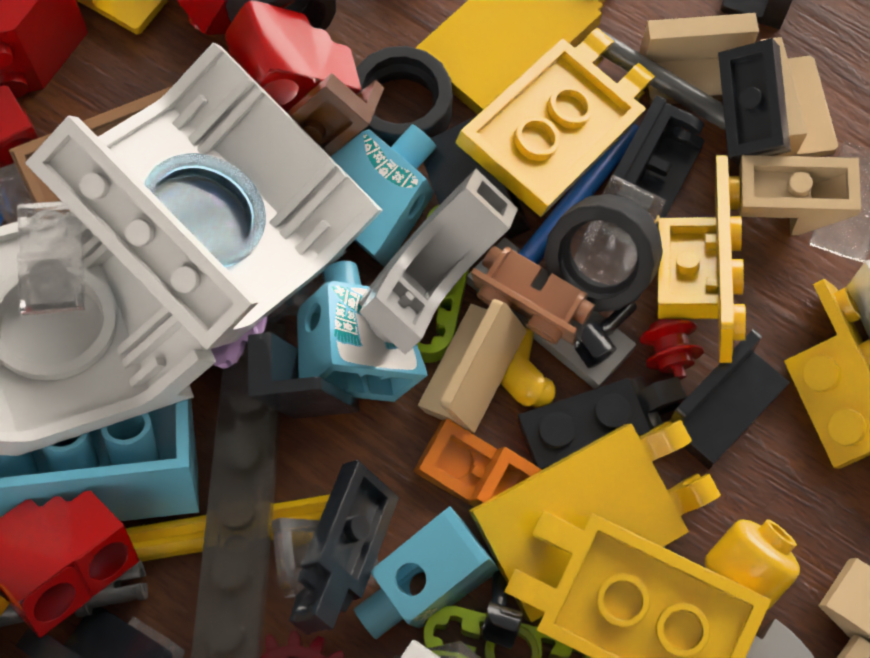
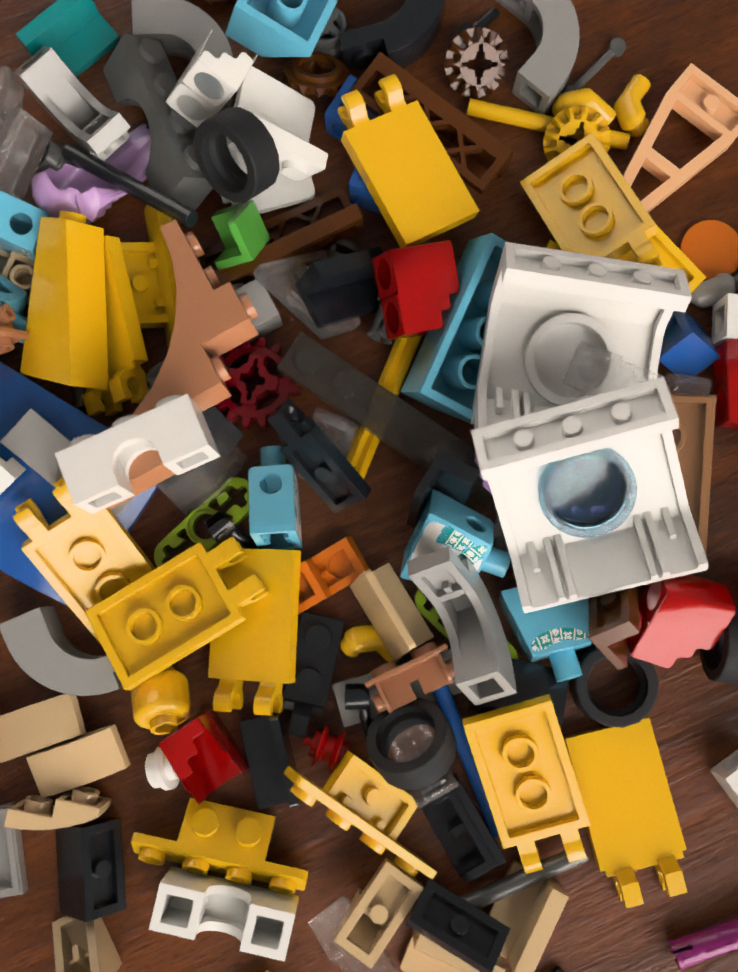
camera: 125 degrees right, 15 degrees up
(772, 478) = (203, 755): none -> red piece
(823, 515) = (160, 772): none -> white plate

